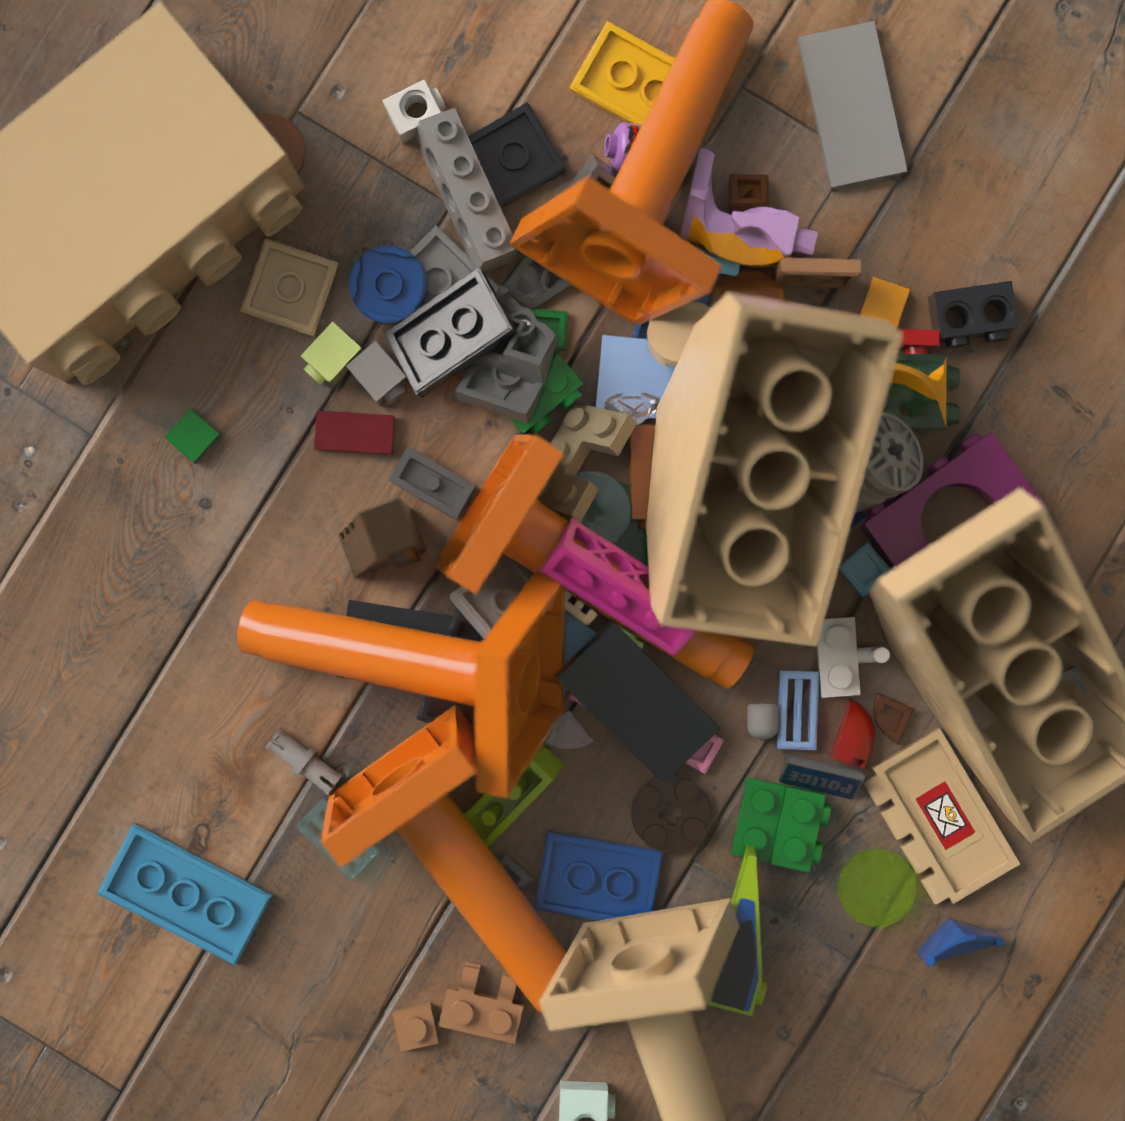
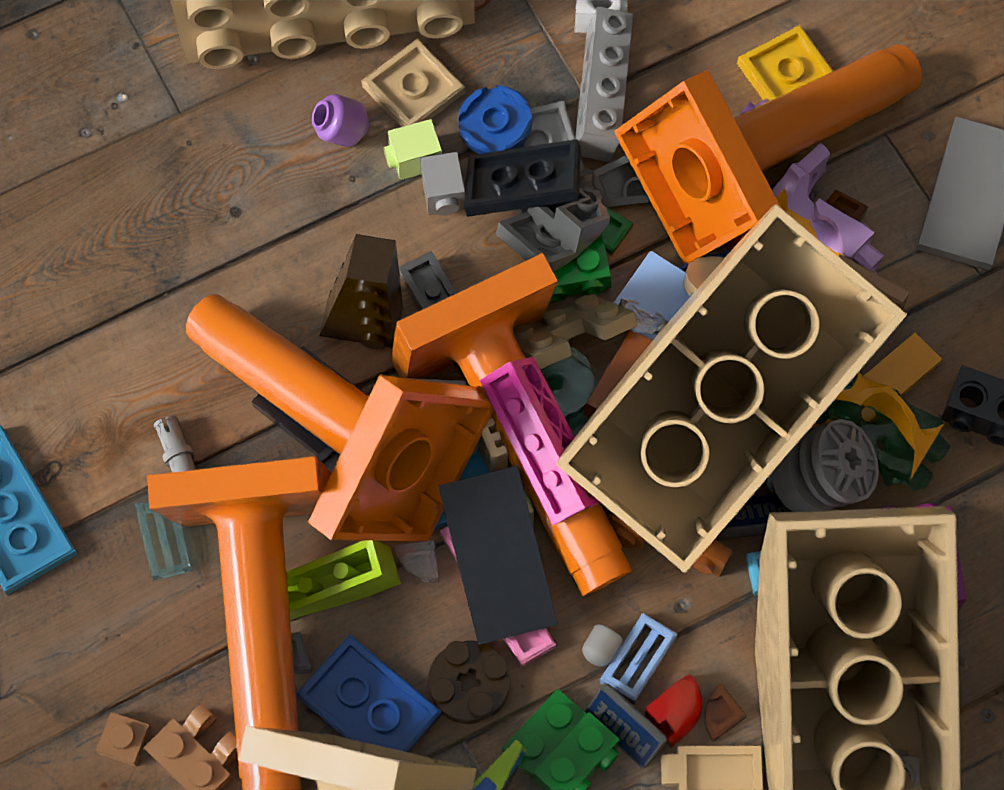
camera: 30 degrees right, 20 degrees down
(192, 436) = (260, 153): green tile -> none
(248, 366) = (340, 120): none -> medium lavender head
(354, 432) = (394, 221): dark red tile -> none
(516, 155) = (653, 75): black tile -> none
(840, 658) = (704, 633): white plate -> none
(919, 340) = (926, 398): red plate -> none

